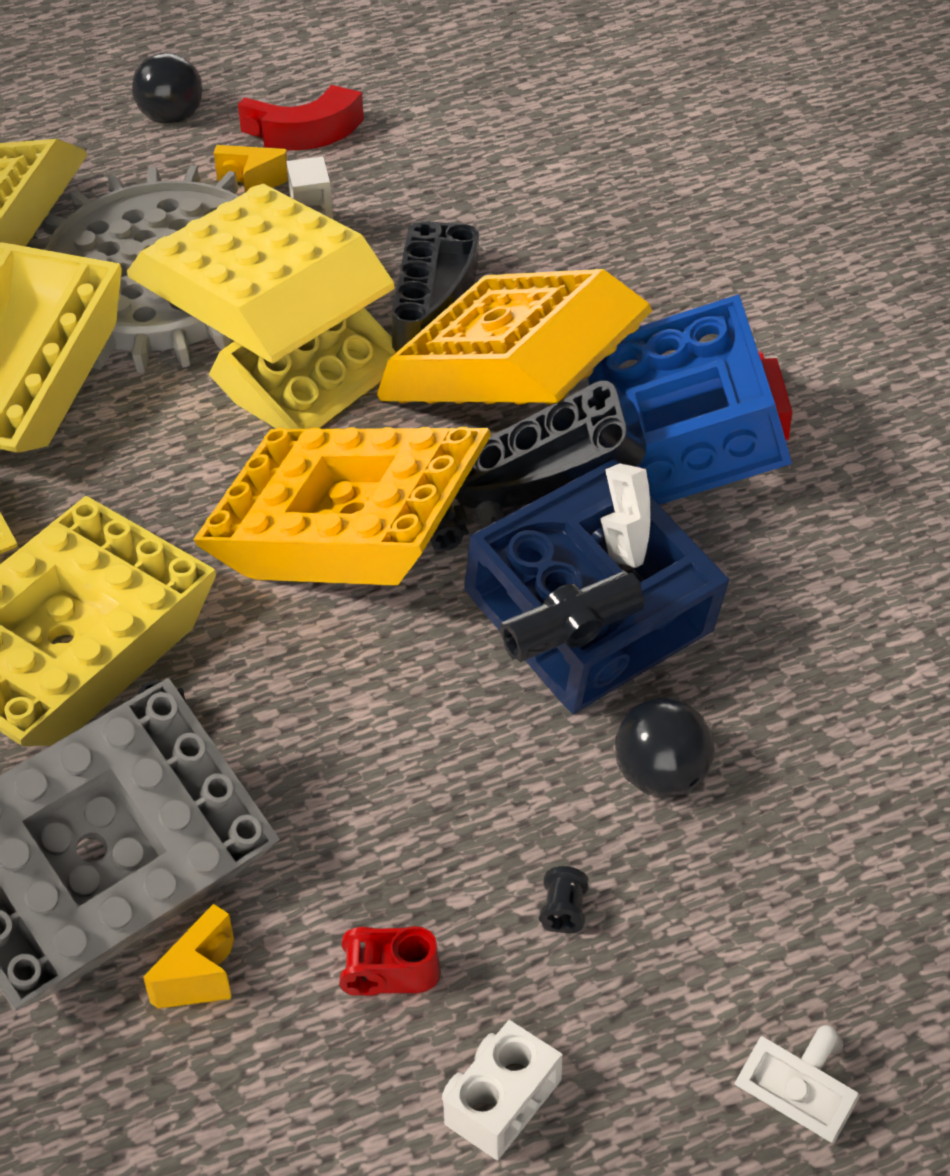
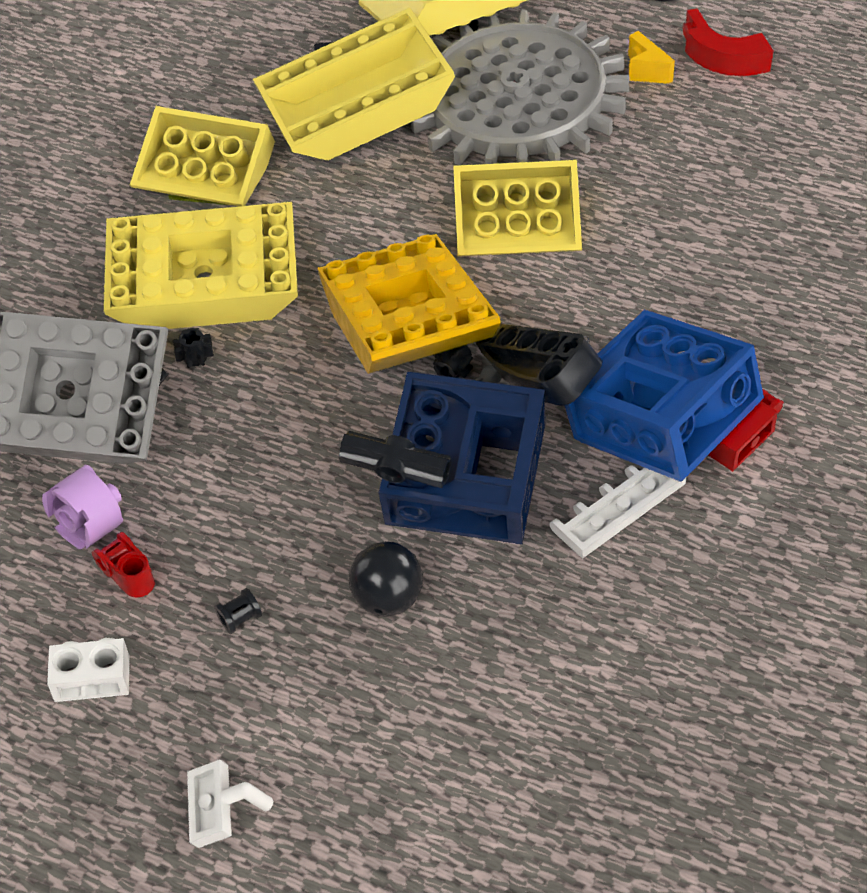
camera: 50 degrees right, 5 degrees up
(191, 968) = (35, 482): yellow slope -> none
(264, 271) = (531, 133): light yellow slope -> none
(276, 942) = (83, 507): none -> lavender brick
(310, 184) = (641, 105): white brick -> none
(434, 273) = (644, 209): black beam -> none
(516, 339) = (611, 278): yellow slope -> none
(629, 526) = (502, 431): white slope -> none
(754, 536) = (614, 510): none -> white hinge

